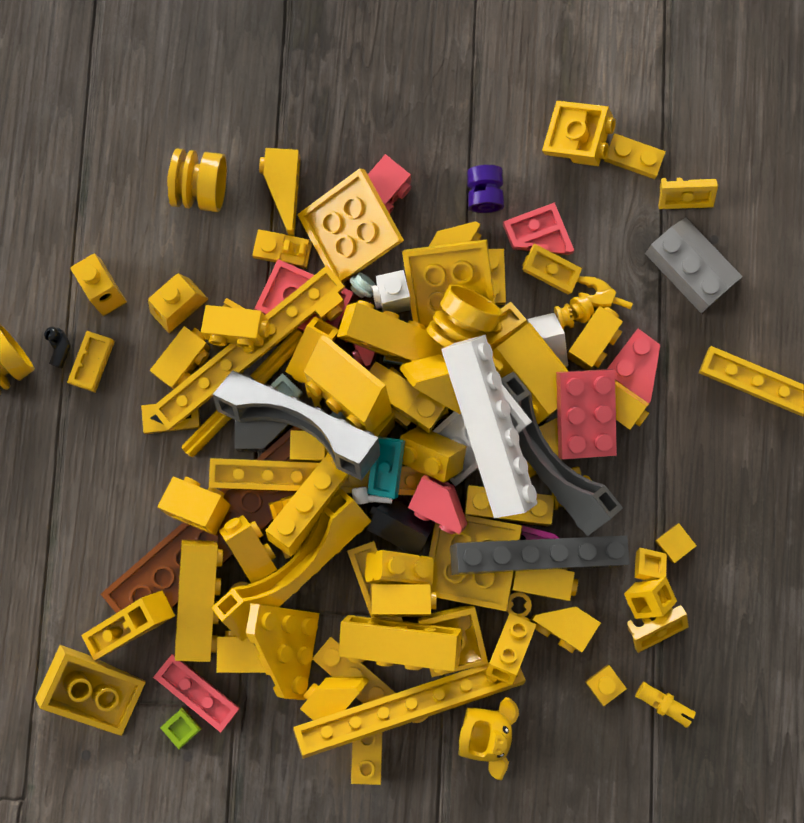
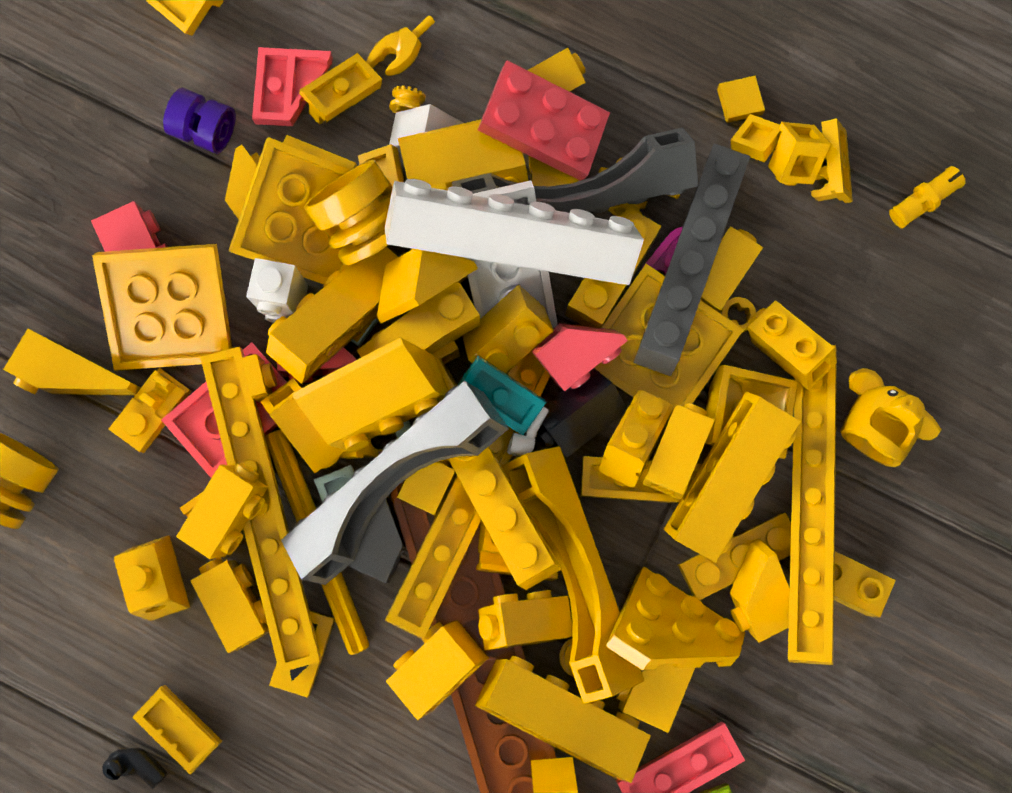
camera: 70 degrees left, 0 degrees up
(96, 282) = (73, 674): yellow torso -> none
(362, 285) = (248, 327): light aqua plate -> none
(569, 625) = (787, 264): yellow slope -> none
(581, 309) = (408, 74): yellow plate -> none
(594, 338) = (451, 76): yellow brick -> none
(605, 685) = (875, 256): yellow plate -> none
(637, 364) = (502, 38): coral wing -> none

